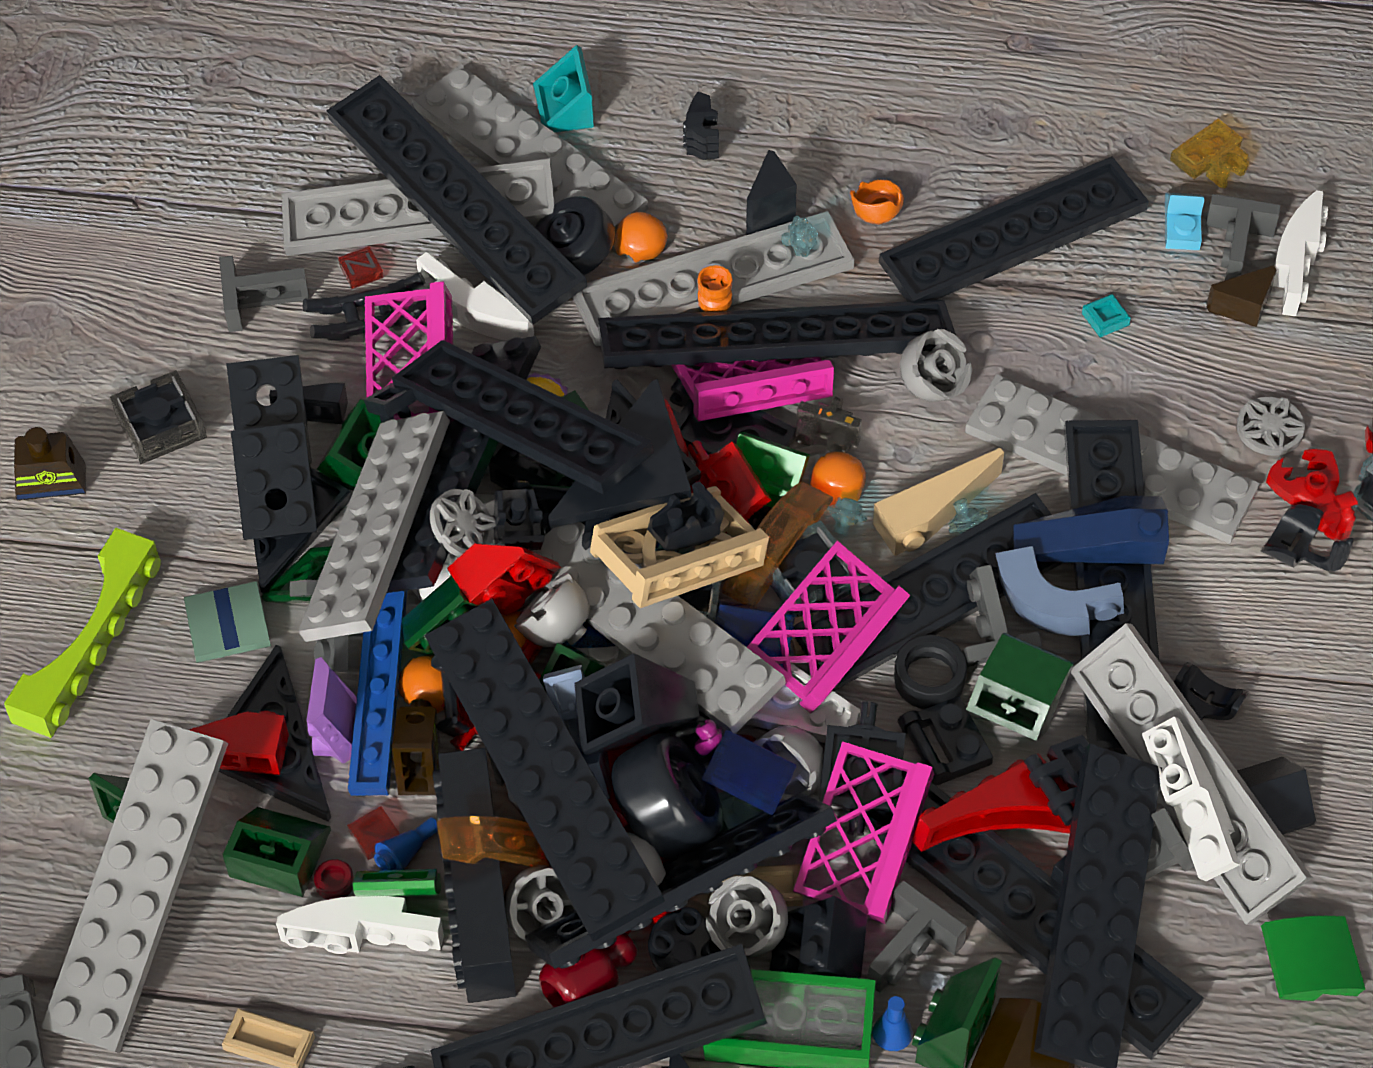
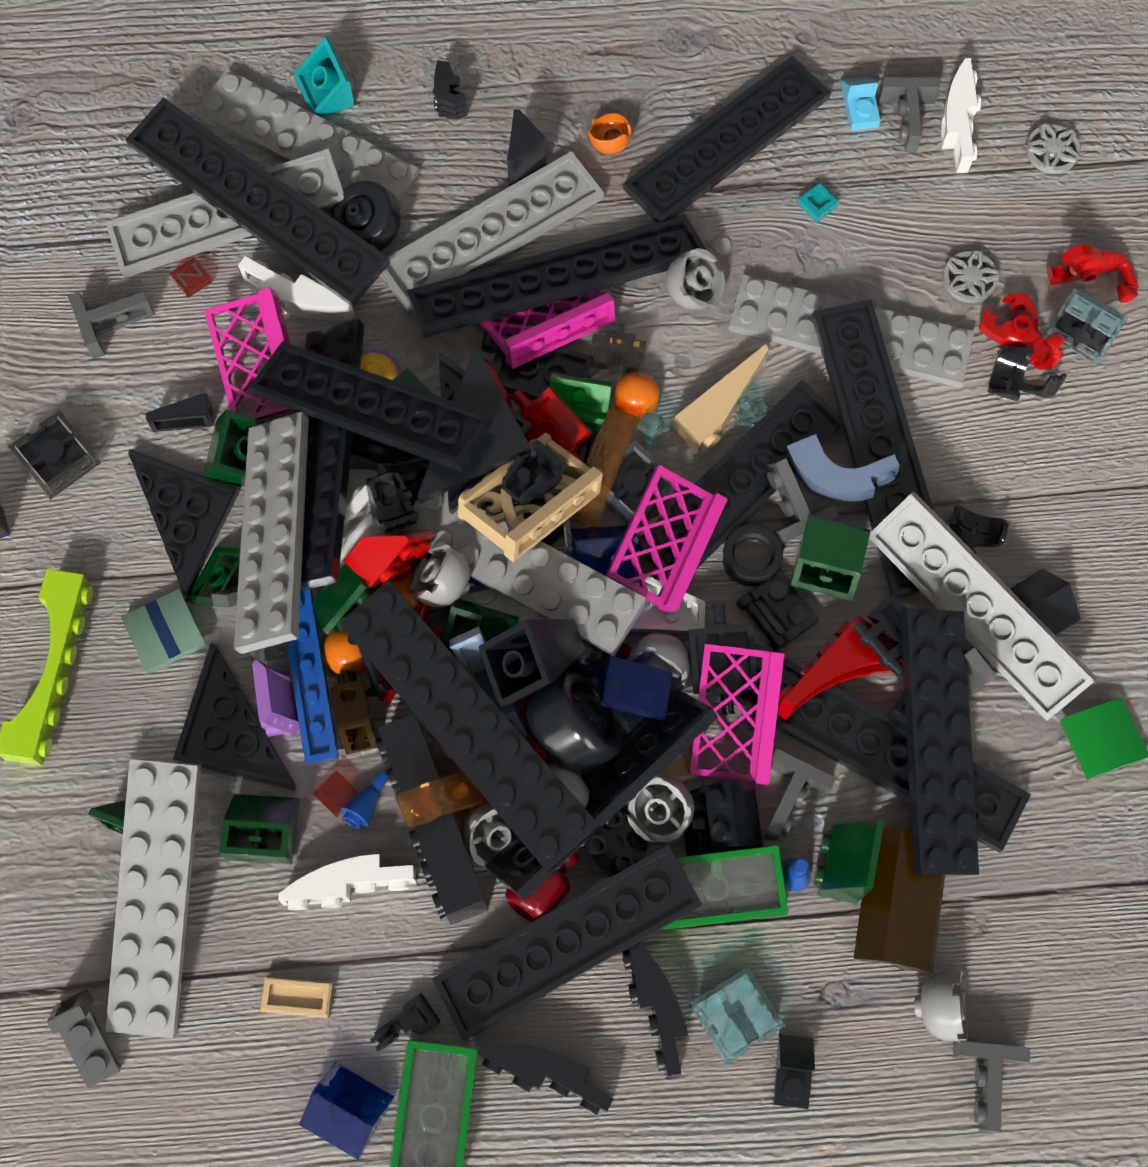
camera: 15 degrees left, 15 degrees up
(253, 739) = (205, 743): red slope -> none
(271, 448) = (161, 469): black bracket -> none
(333, 879) = (313, 843): dark red tile -> none
(349, 305) = (190, 314): black piece -> none
(390, 401) = (253, 408): black tile -> none
(397, 882) = (369, 842): green slope -> none
(461, 521) = (345, 516): light grey wheel -> none
(640, 236) = (421, 203): orange hair -> none
(704, 739) = (594, 668): magenta arm -> none
(714, 289) = (497, 245): orange wheel -> none
(800, 236) = (556, 181): clear light blue plant -> none
(1104, 532) = (870, 404): dark blue wedge -> none
(1195, 798) = (993, 631): white slope -> none
(1214, 151) = (871, 36): clear yellow plate -> none
(1242, 296) = (926, 165): dark brown slope -> none

